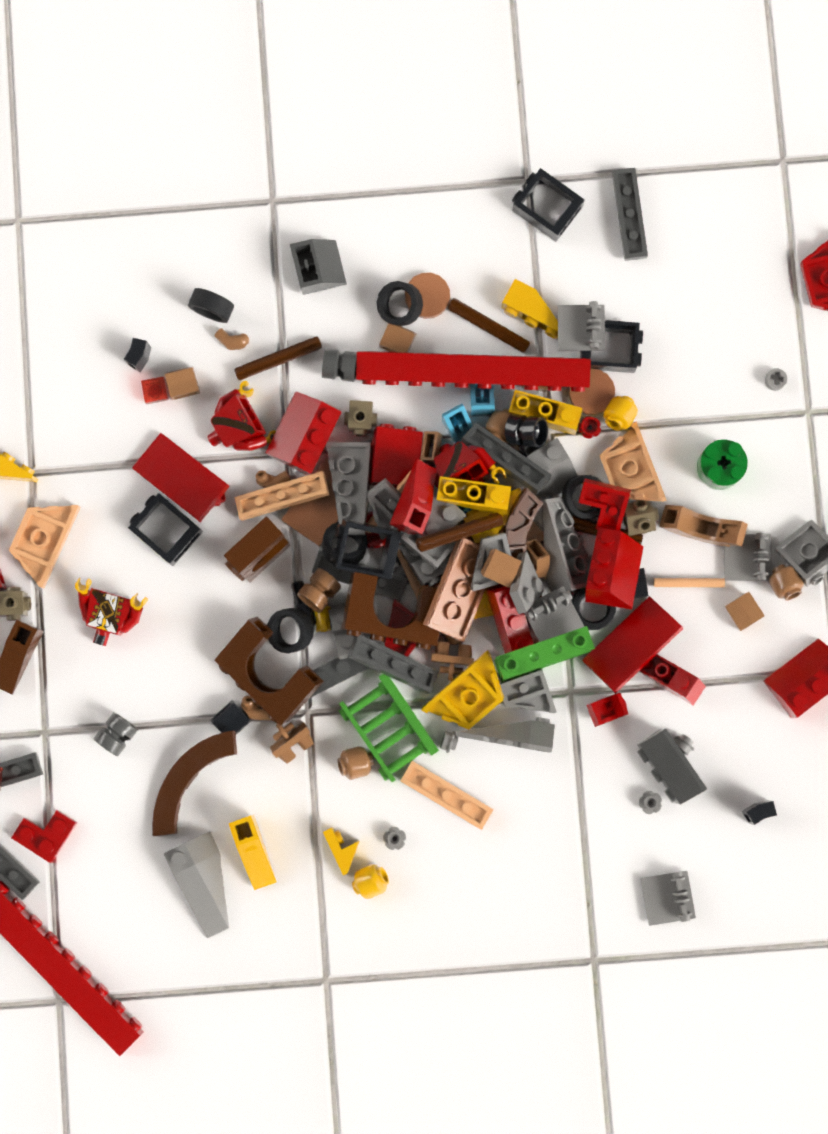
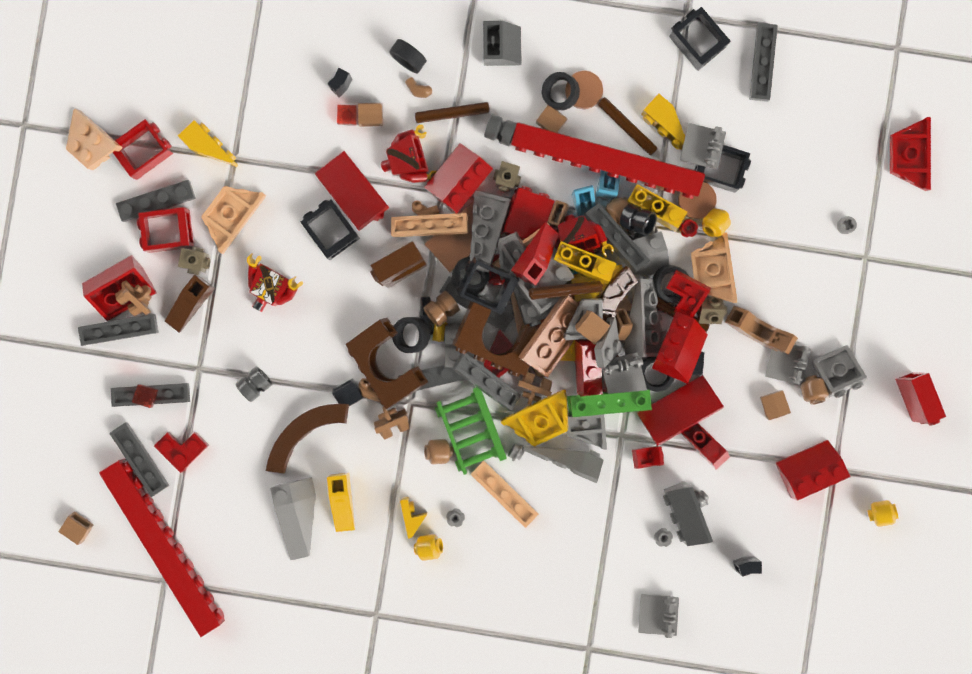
camera: 10 degrees right, 5 degrees up
(689, 582) = (736, 371): light nougat bar -> none
(729, 453) = (797, 279): green brick -> none

